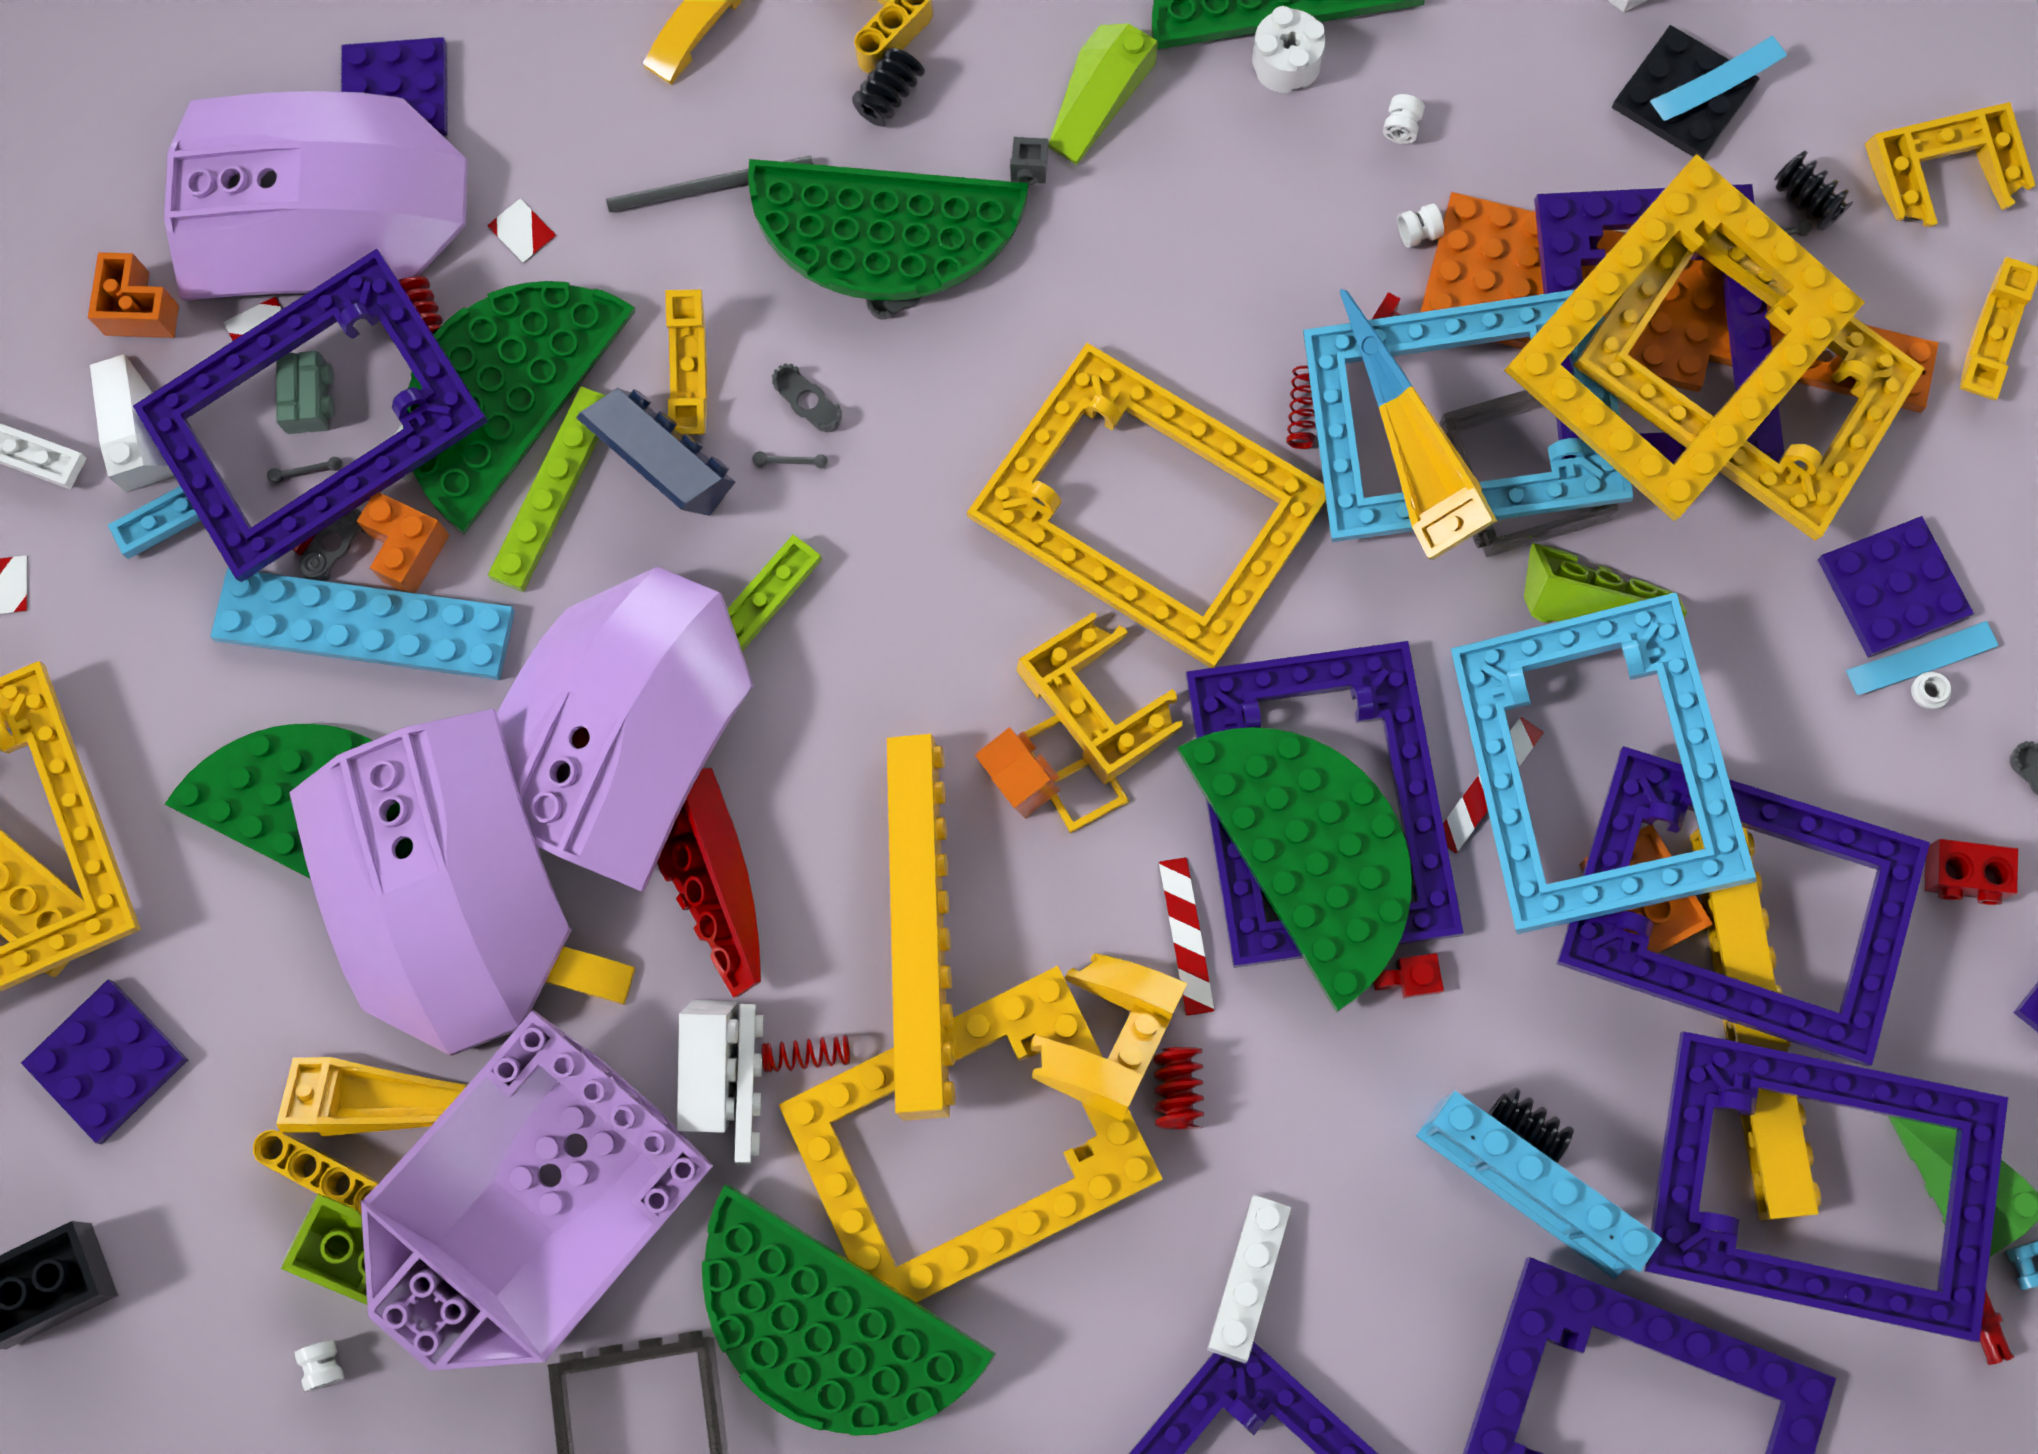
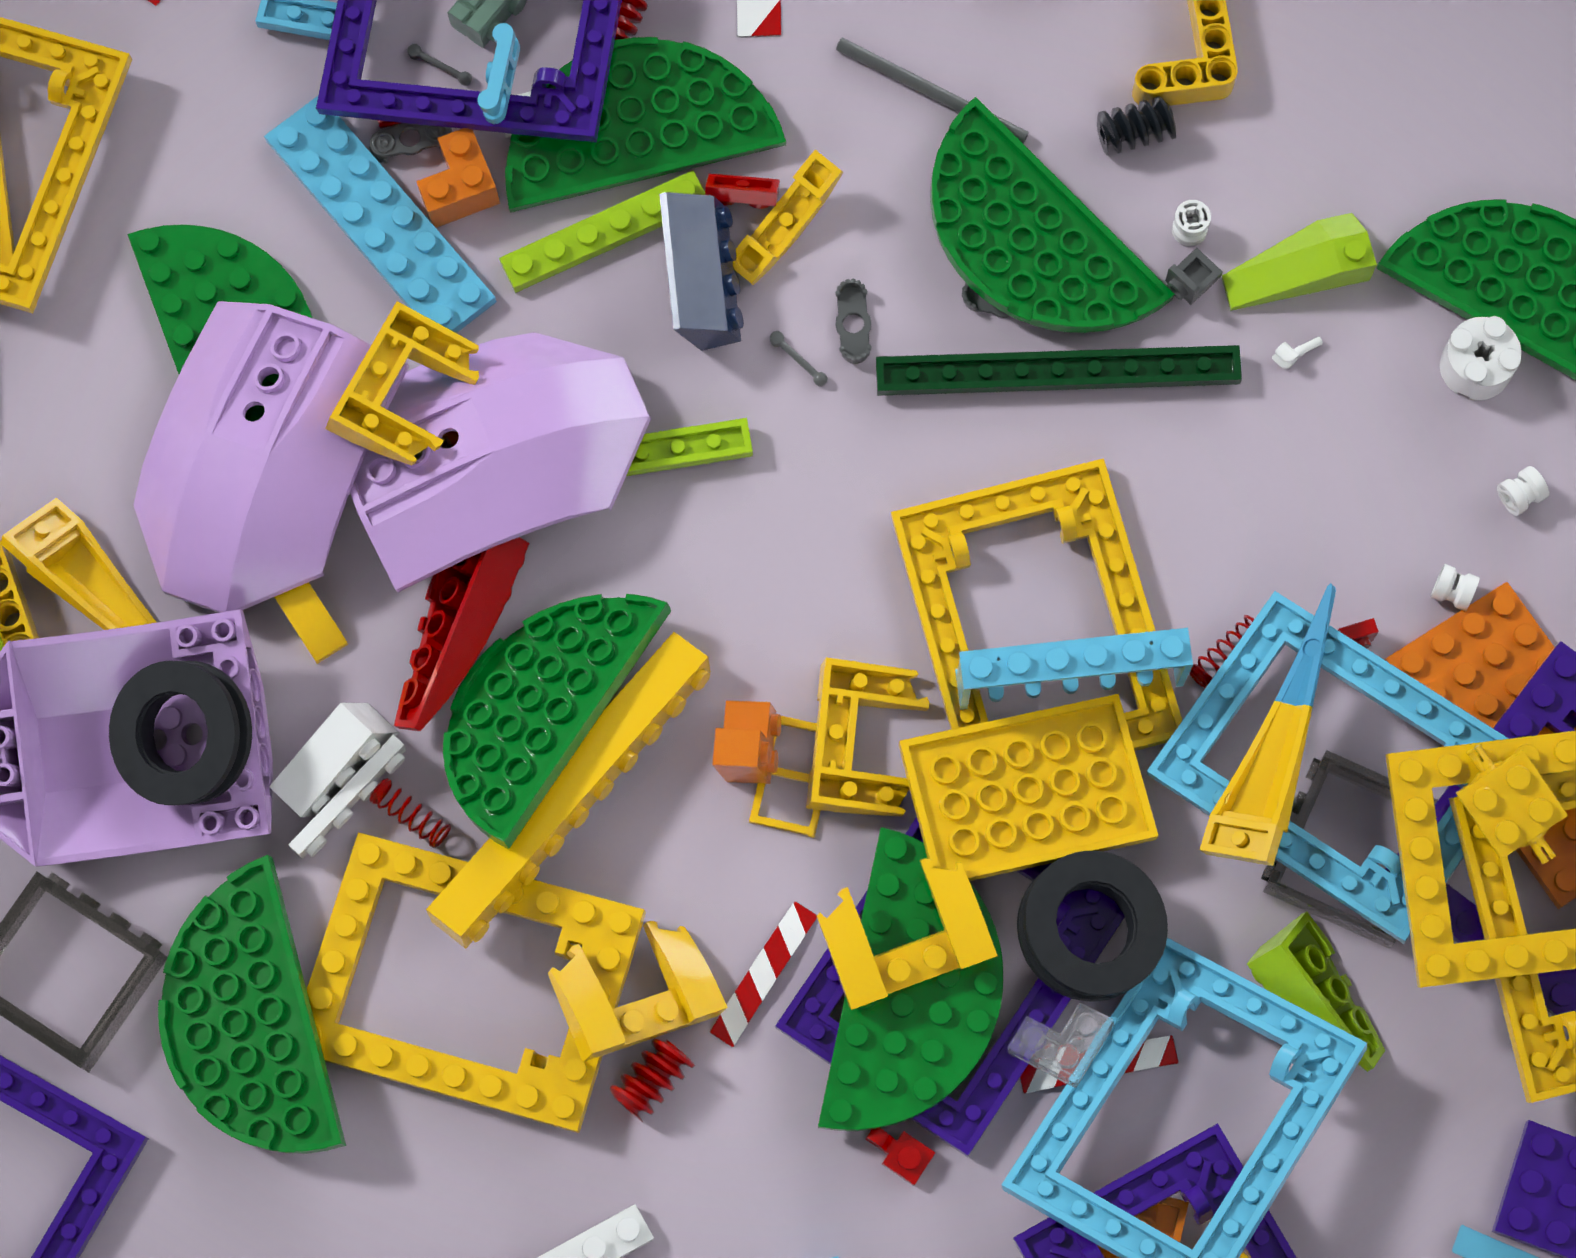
camera: 40 degrees right, 0 degrees up
(365, 428) = (500, 74): none -> medium azure plate
(490, 774) = (402, 337): none -> yellow wedge
(538, 1193) = (133, 730): none -> black tyre
(643, 363) = (732, 189): none -> red plate
(831, 883) = (536, 702): none -> green plate
(991, 309) = (1058, 370): none -> dark green plate
(992, 123) = (1189, 231): none -> white wheel
(1148, 161) = (1287, 356): none -> white hand
(1203, 508) = (1074, 660): none -> medium azure window
(1260, 627) = (1028, 788): none -> yellow plate
(1321, 779) = (959, 945): none -> yellow wedge
(1427, 644) = (1134, 896): none -> black tyre
(1467, 793) = (1064, 1053): none -> clear plate
(1629, 325) = (1511, 804): none -> yellow plate

